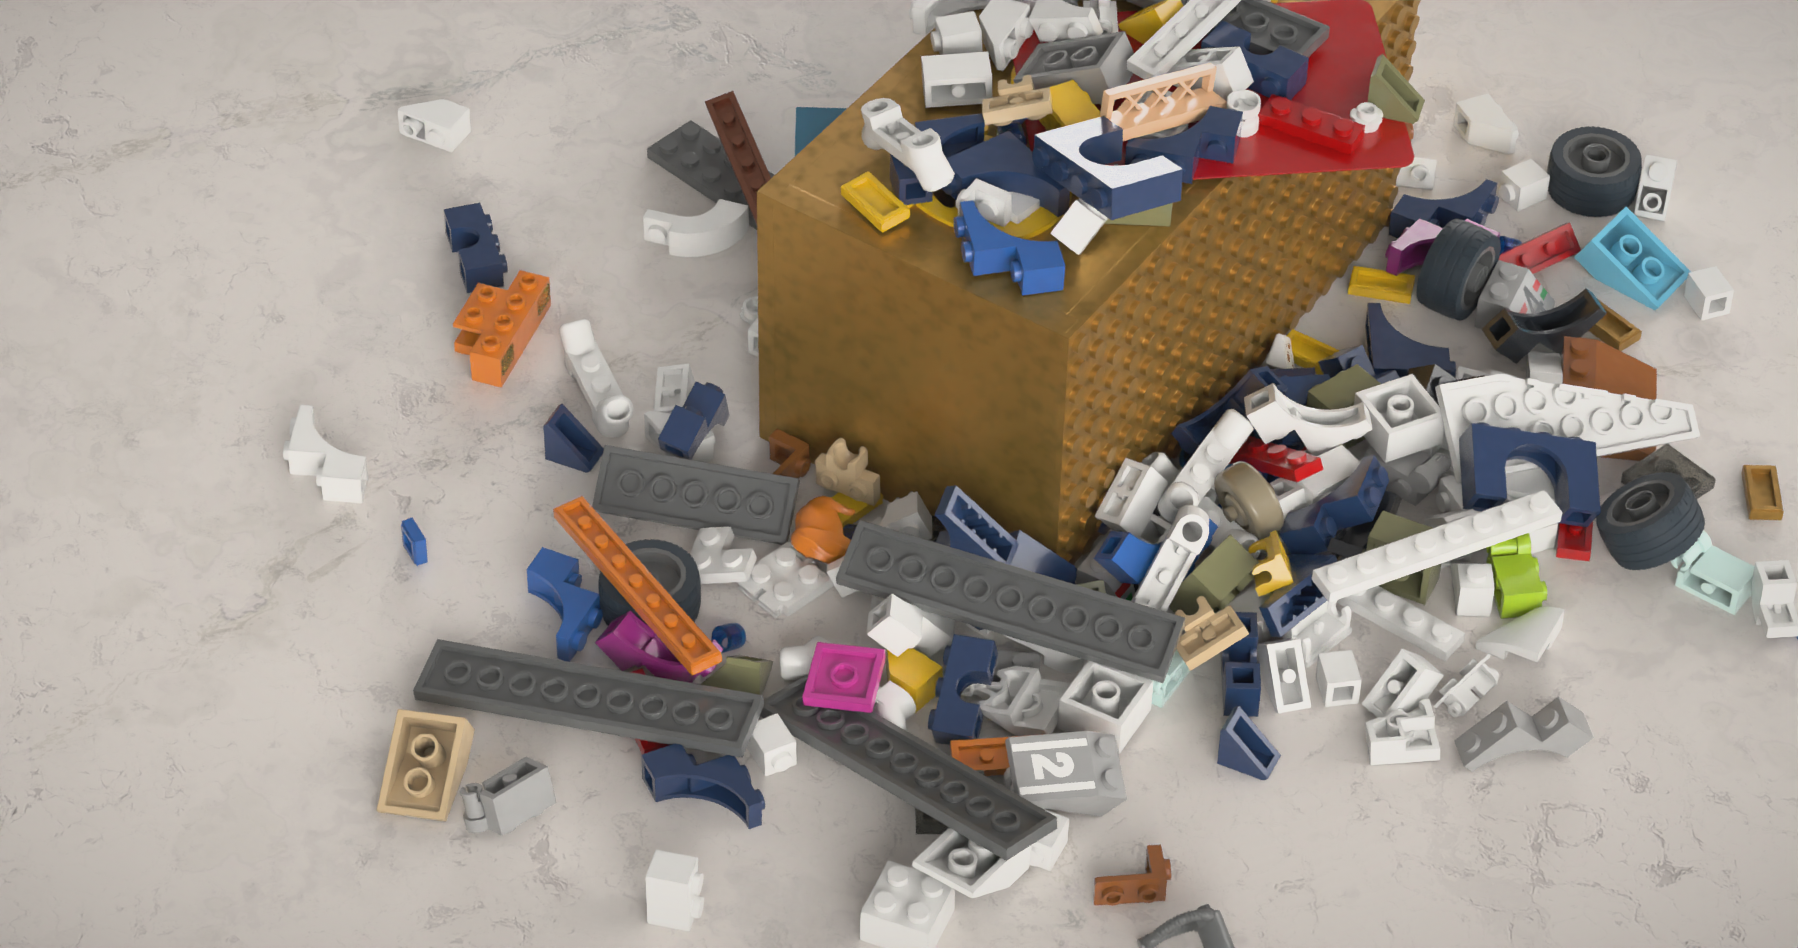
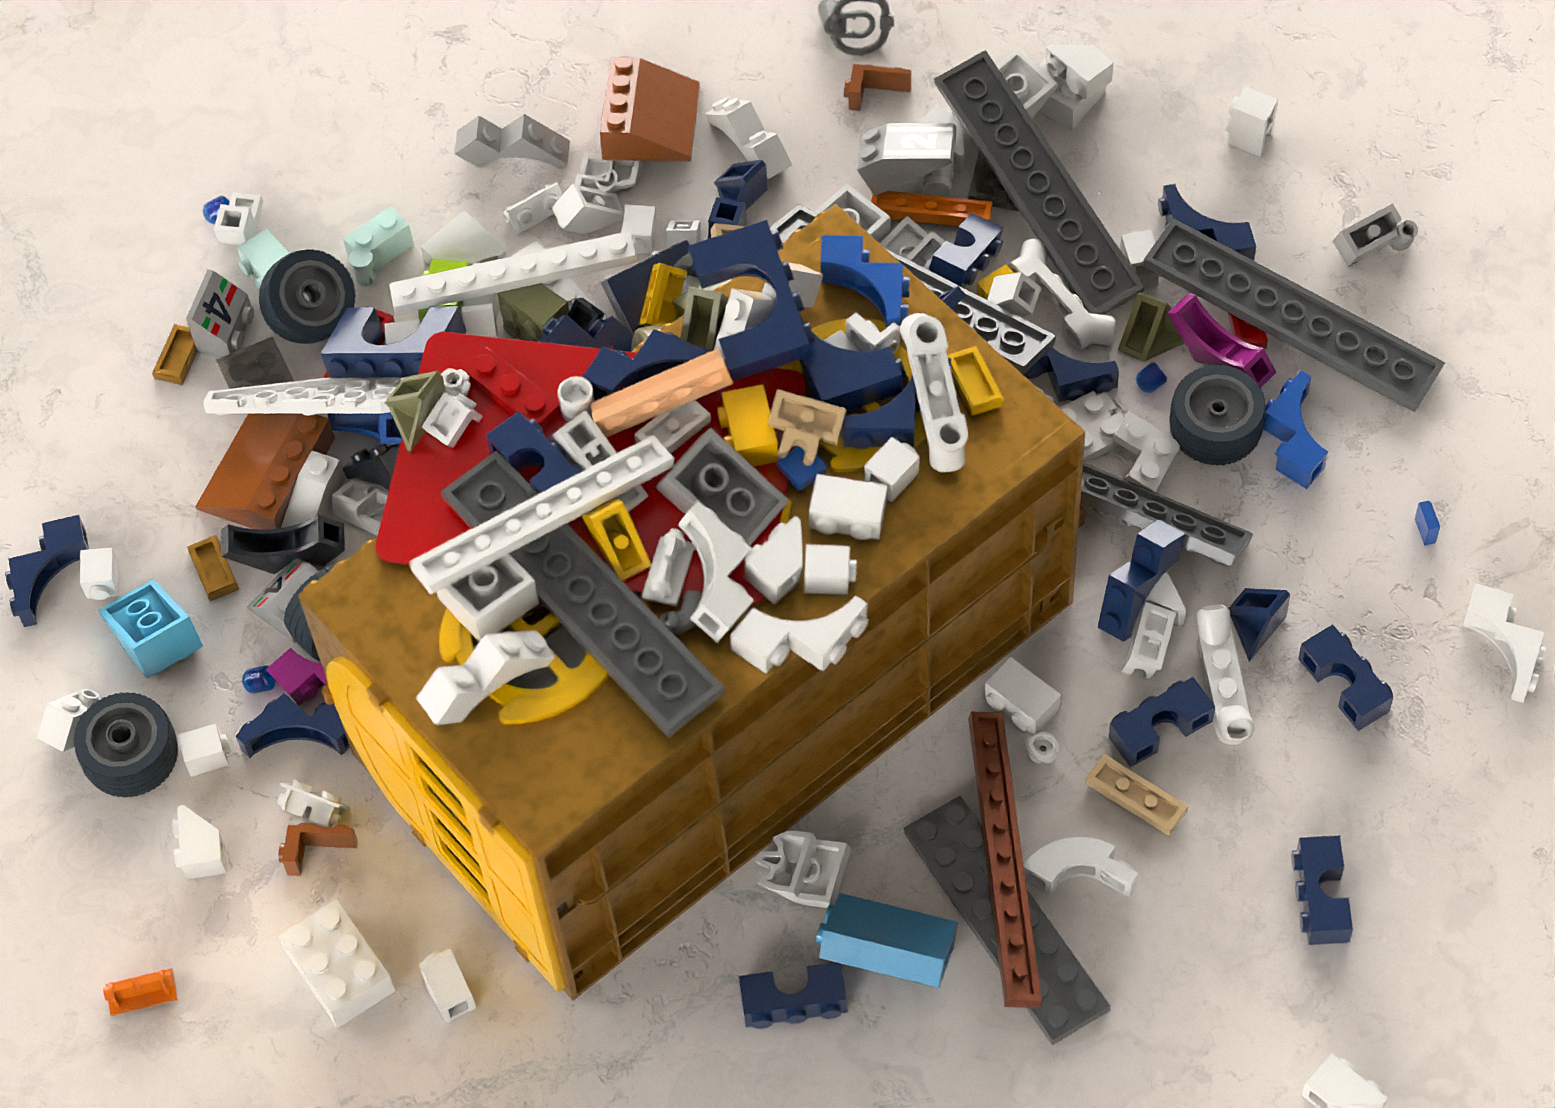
camera: 160 degrees left, 15 degrees up
(425, 764) = (1440, 291): tan slope -> none
(459, 392) = (1332, 655): none -> dark blue arch
(500, 325) = (1309, 769): orange piece -> none
(637, 586) = (1235, 386): orange tile -> none
(659, 289) = (1136, 794): none -> tan plate
(668, 332) = (1182, 705): none -> dark blue arch
(820, 613) = (1074, 377): none -> dark blue arch
(844, 677) = (1068, 271): dark pink plate -> none
(890, 877) = (1080, 67): none -> white slope
(927, 104) = (893, 466): none -> white brick
(1272, 789) = (745, 129): none -> white arch
(1348, 89) = (451, 418): none -> white bracket
(1383, 786) = (648, 112): none -> dark orange slope
(1472, 36) = (140, 992): none -> orange hinge
(1544, 249) = (238, 657): red plate -> none
(1615, 610) = (377, 244): none -> light aqua hinge
(1734, 507) = (219, 316): none -> light grey slope
(1763, 306) = (33, 571): none -> dark blue arch

